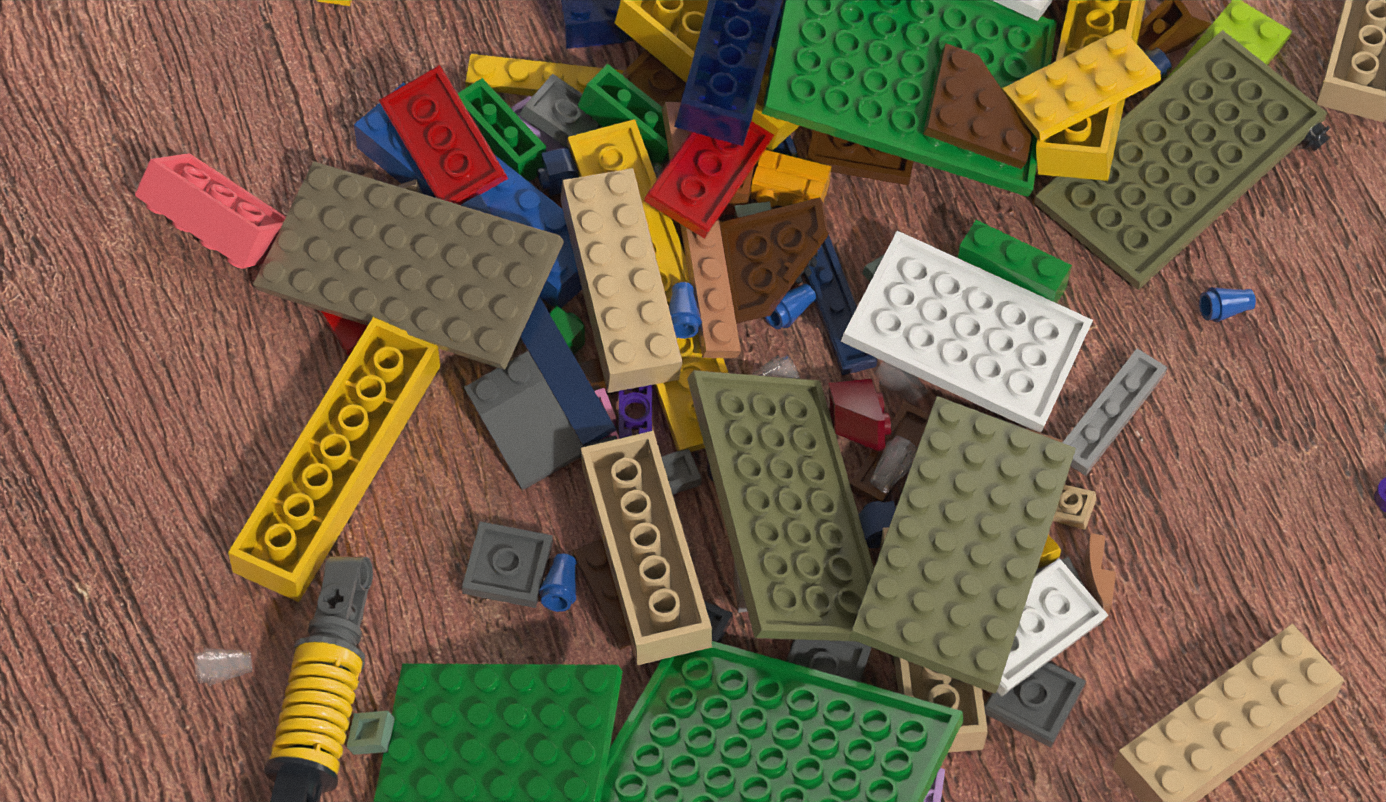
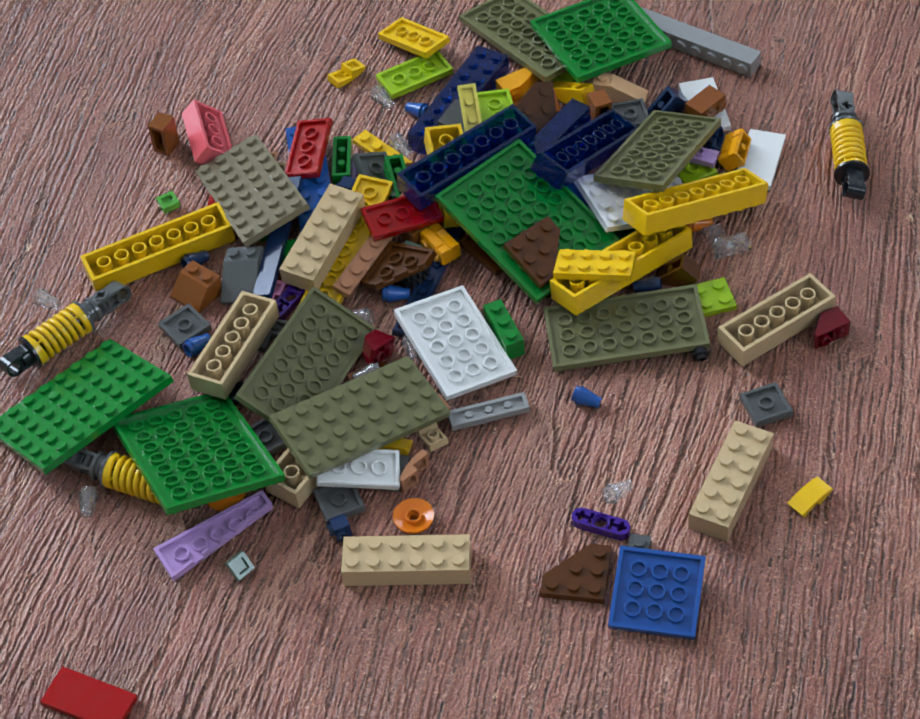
camera: 45 degrees right, 10 degrees down
(146, 249) = (163, 133): none -> dark orange piece
(262, 366) = (168, 202): none -> bright green plate
(370, 732) = (72, 355): sand green plate -> none
(409, 443) = (199, 257): none -> dark blue cone
(462, 485) = (196, 286): none -> dark orange slope
(555, 49) = (400, 144): none -> clear cone
(684, 311) = (338, 265): blue cone -> none
(1080, 739) = (339, 528): none -> dark blue plate
(1170, 633) = (413, 509): none -> orange dish

